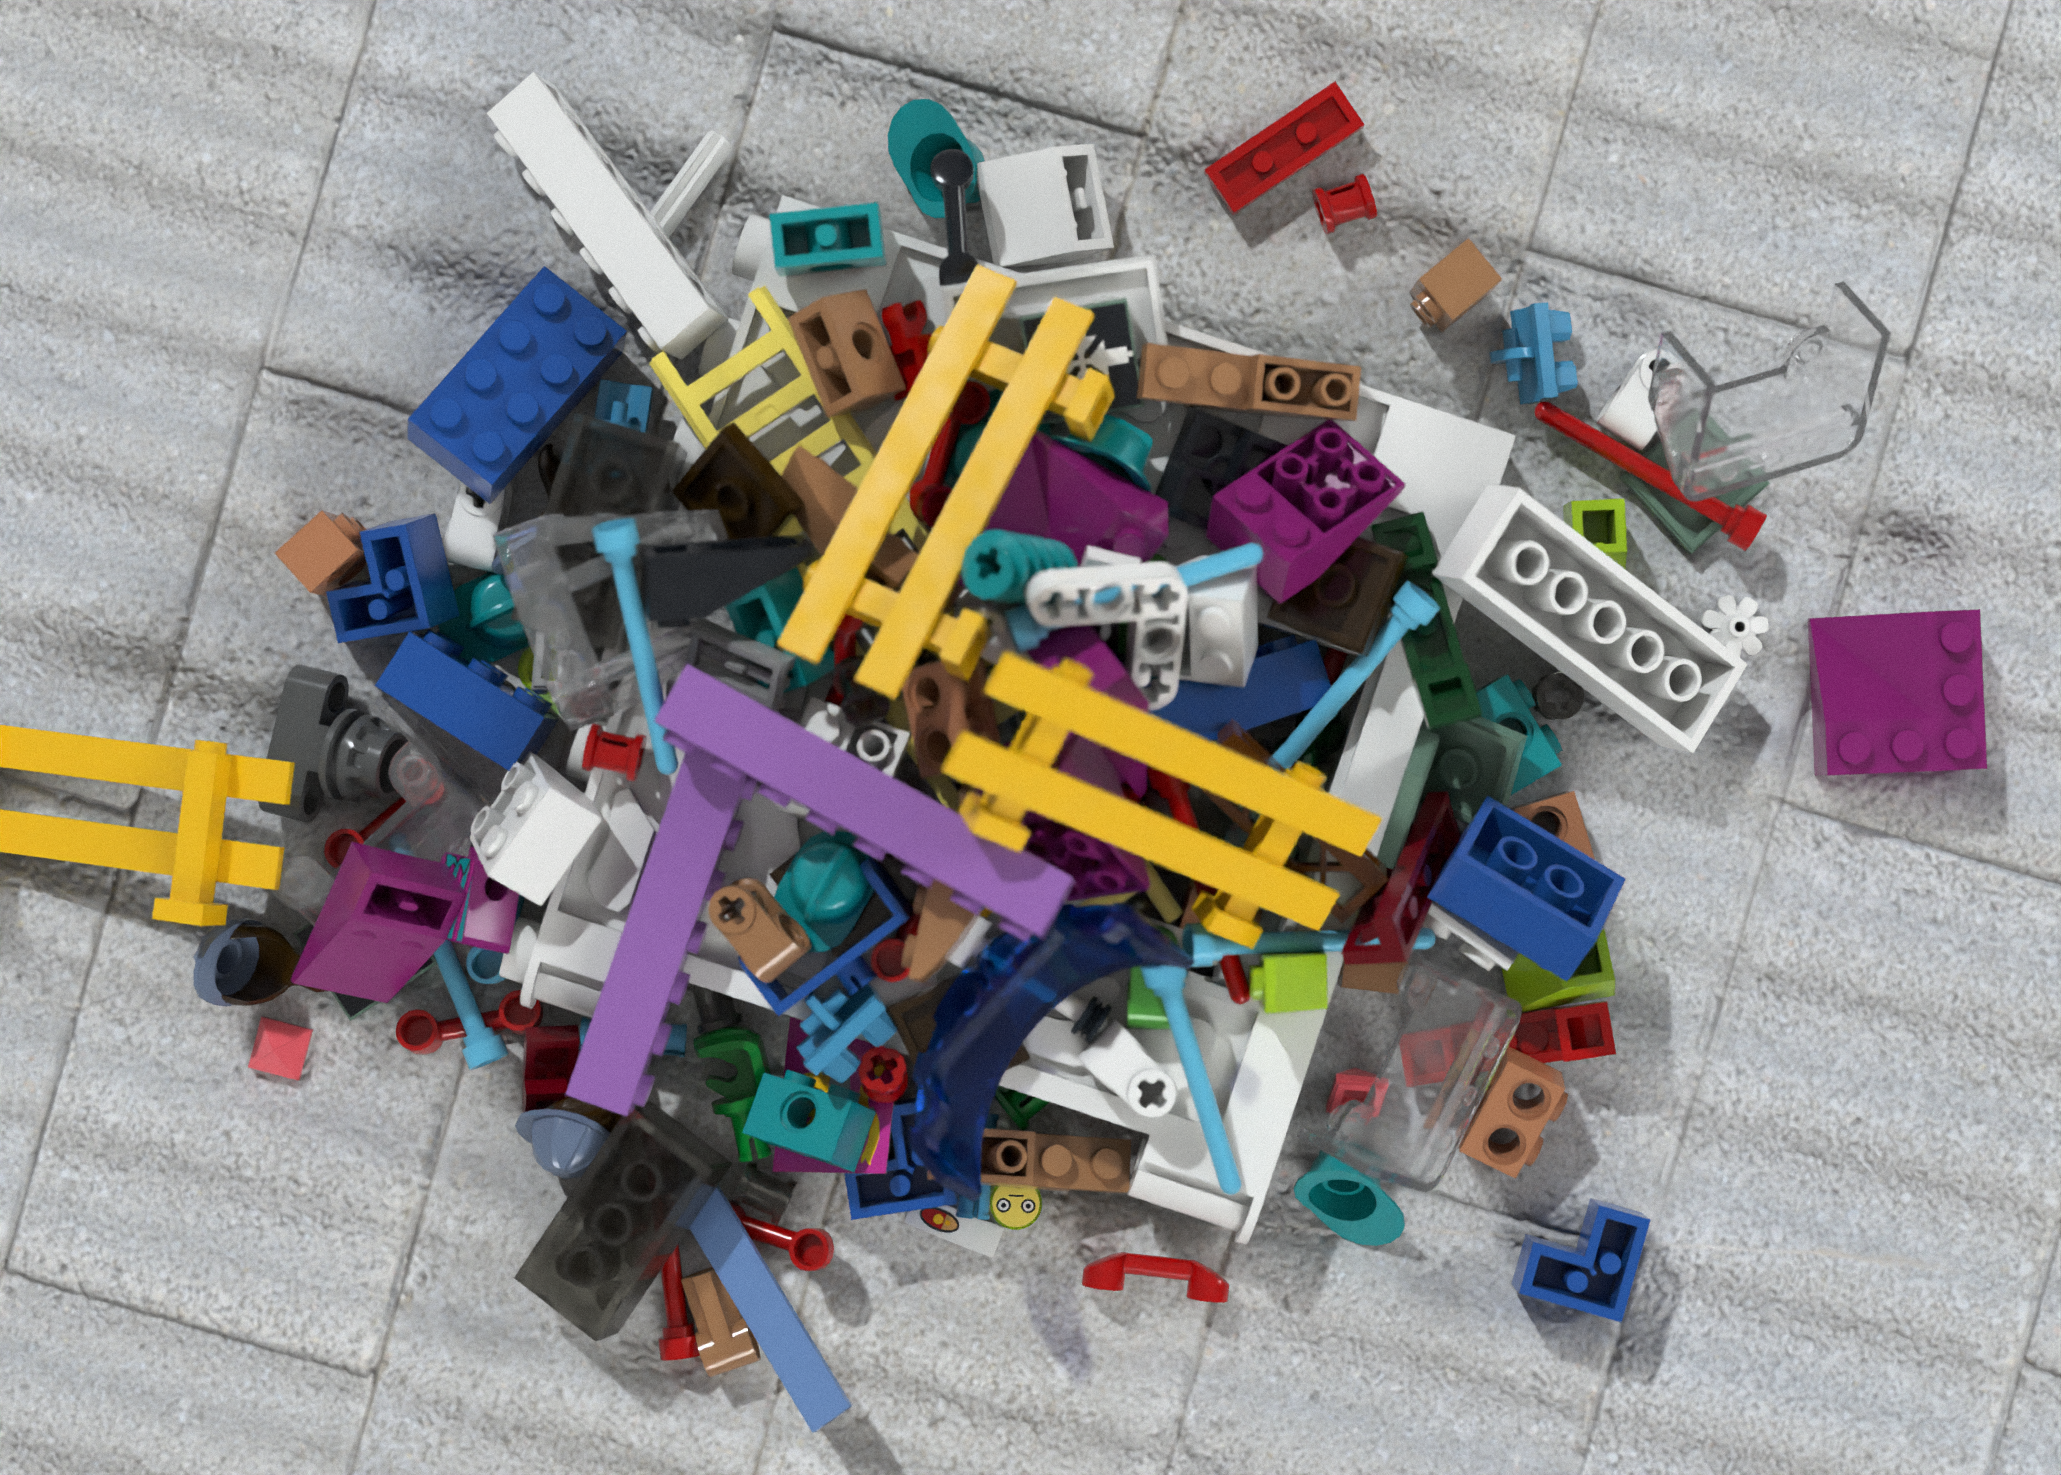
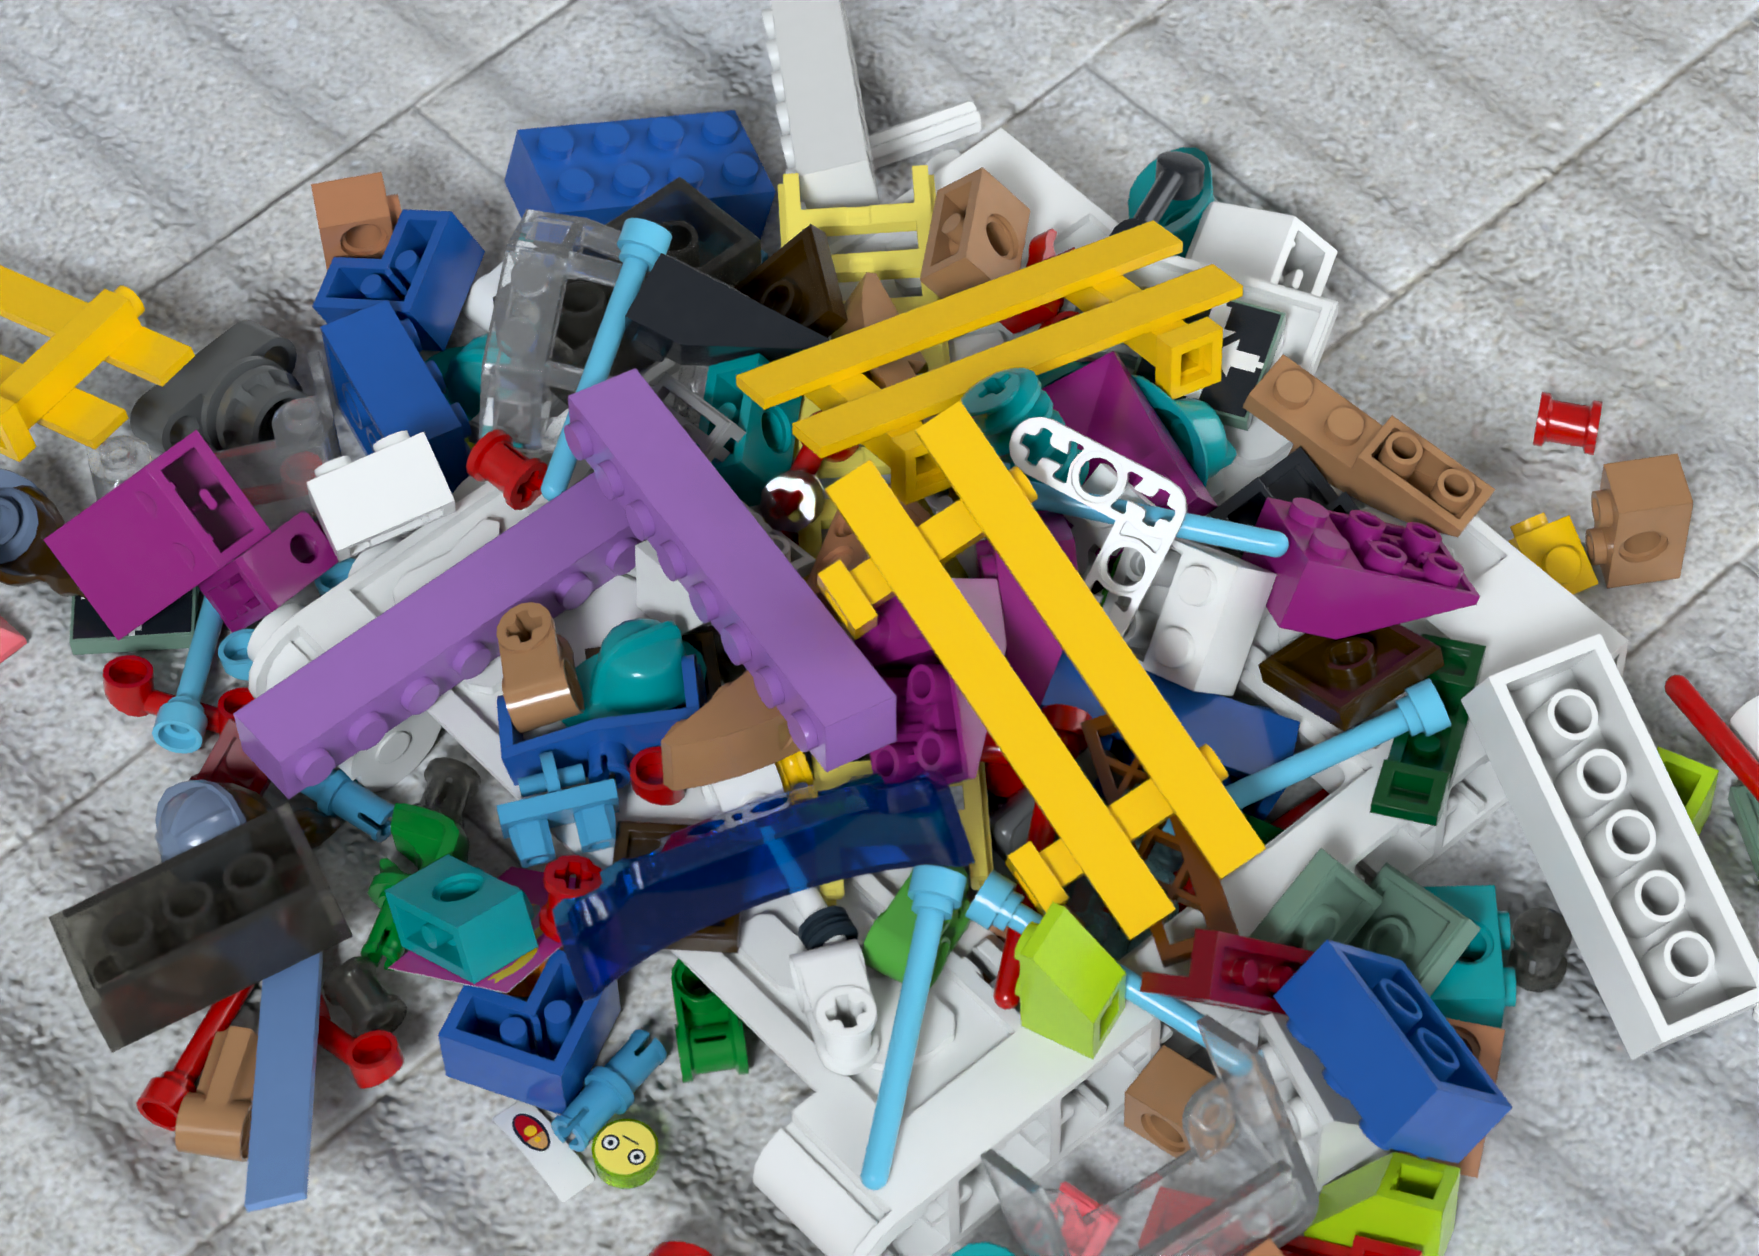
camera: 35 degrees right, 35 degrees down
(827, 239) = (1024, 148): teal brick -> none
(1054, 1161) = (655, 1087): medium nougat slope -> none
(1284, 148) = (1532, 354): red plate -> none
(1391, 340) = (1555, 550): none -> yellow bracket
(1531, 355) = (1692, 627): dark azure hips -> none

